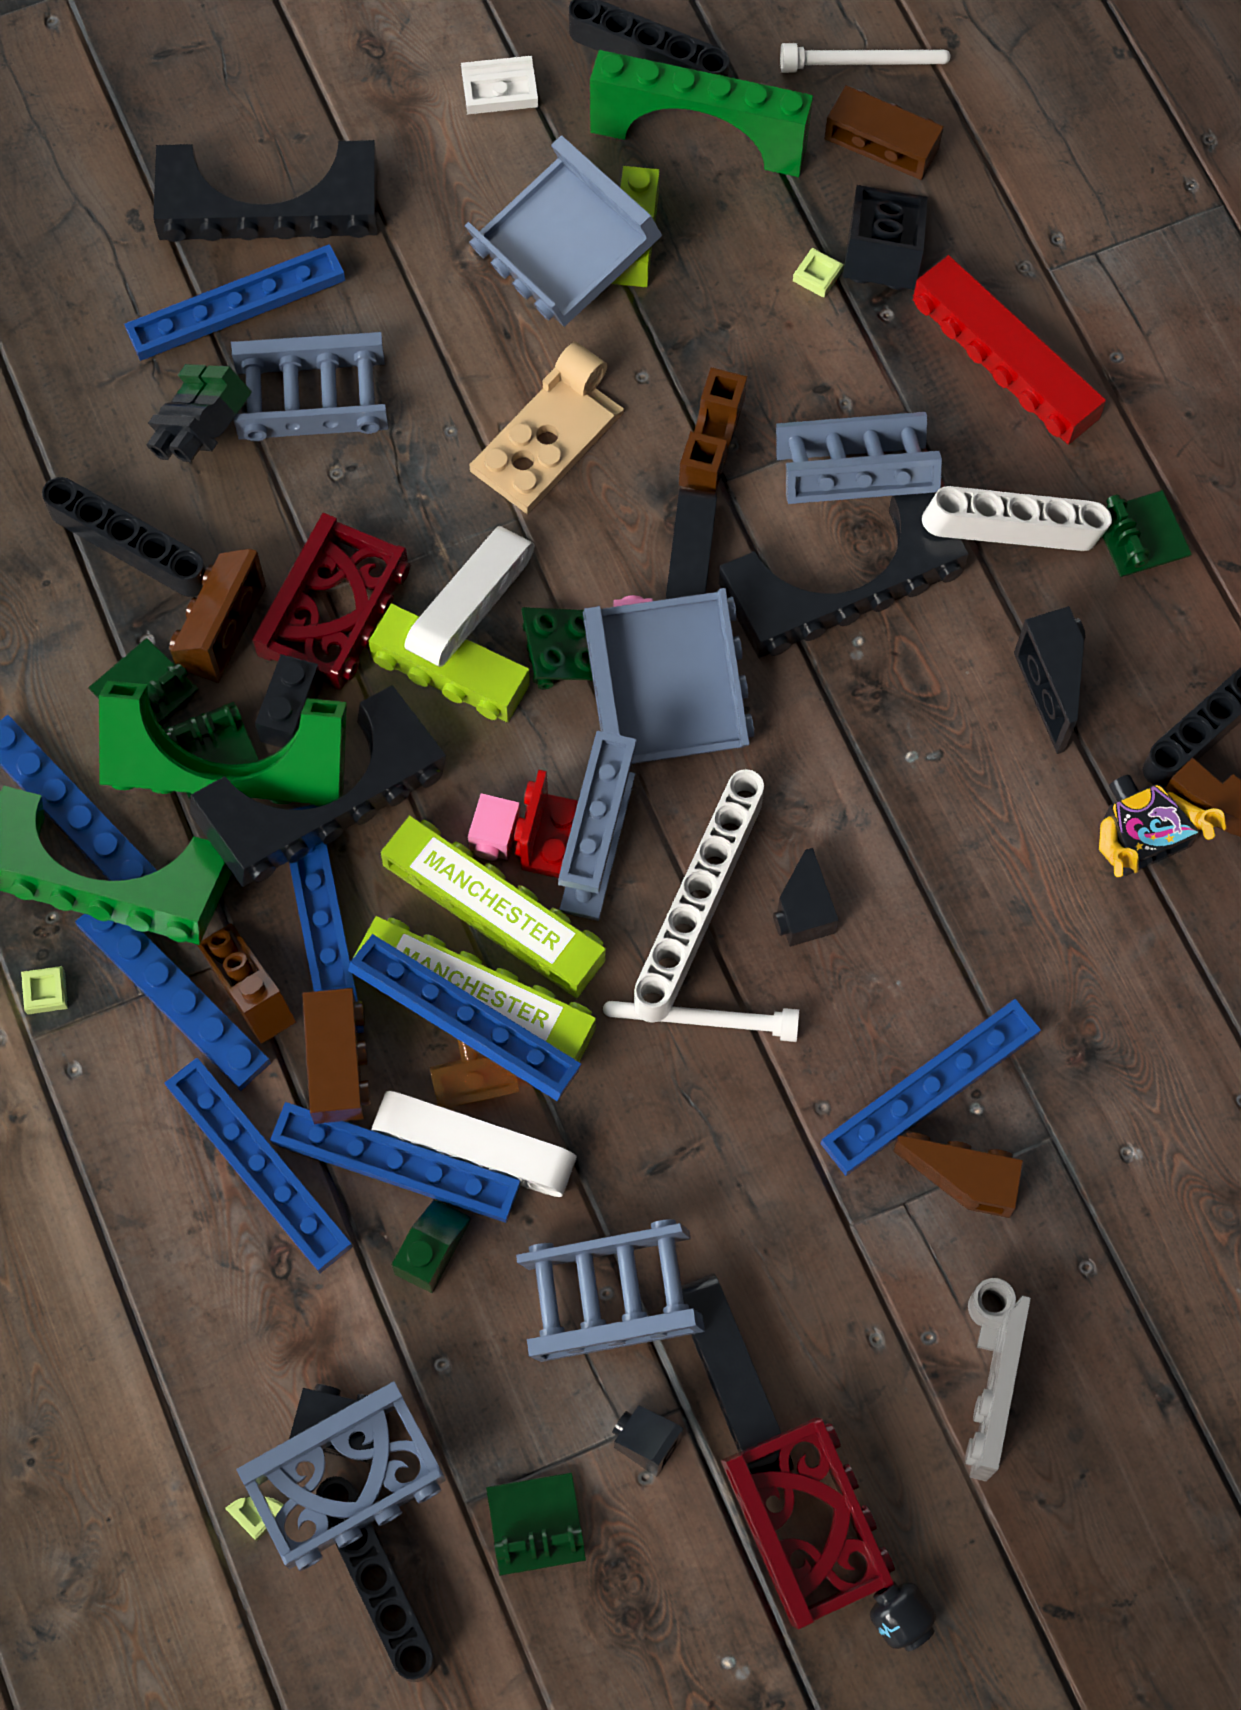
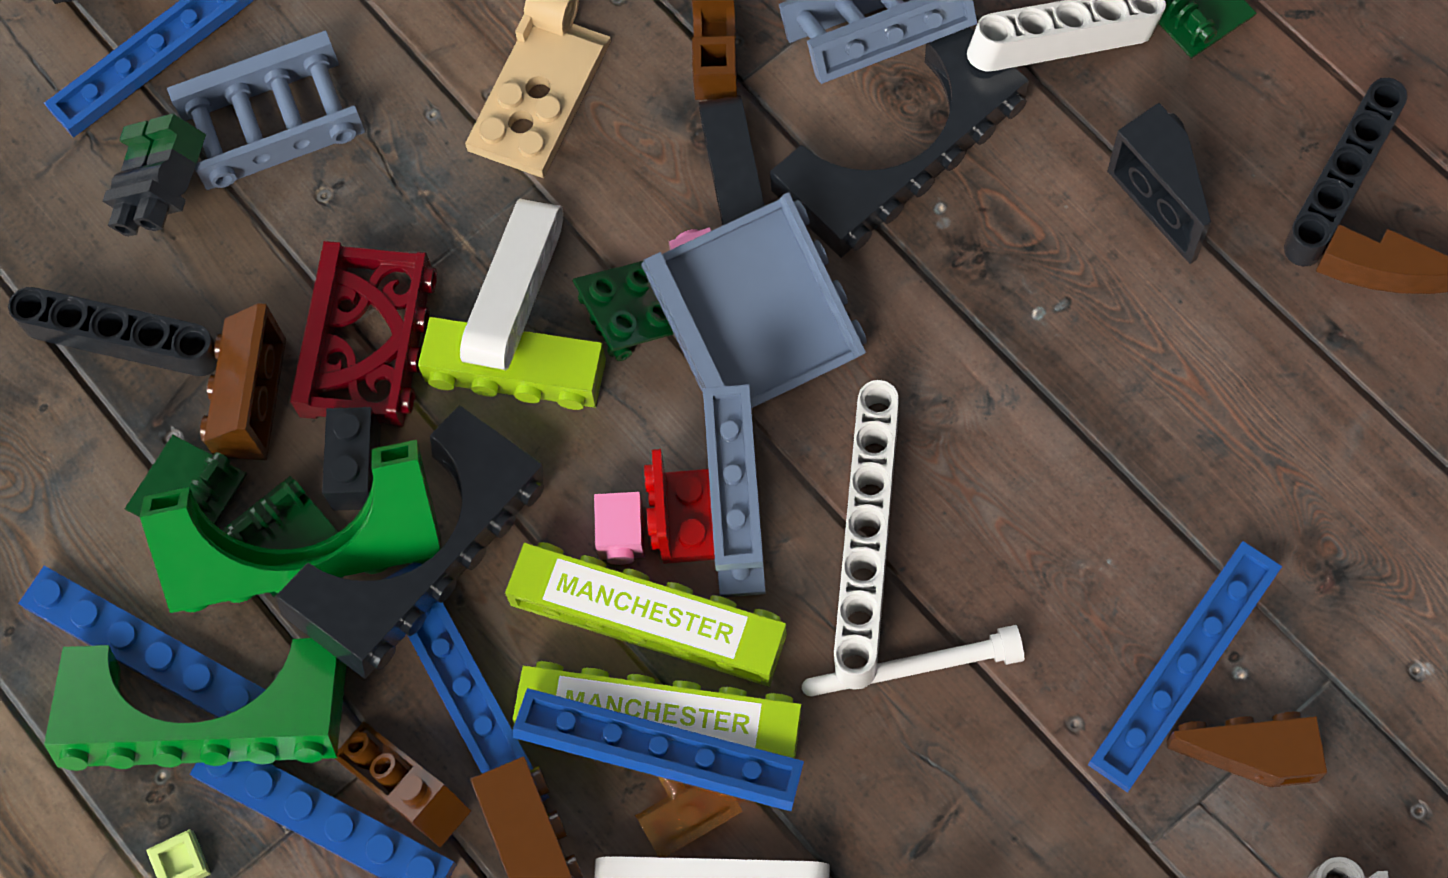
camera: 10 degrees left, 0 degrees up
(805, 904) = (984, 507): black slope -> none
(1150, 826) = (1320, 310): torso -> none

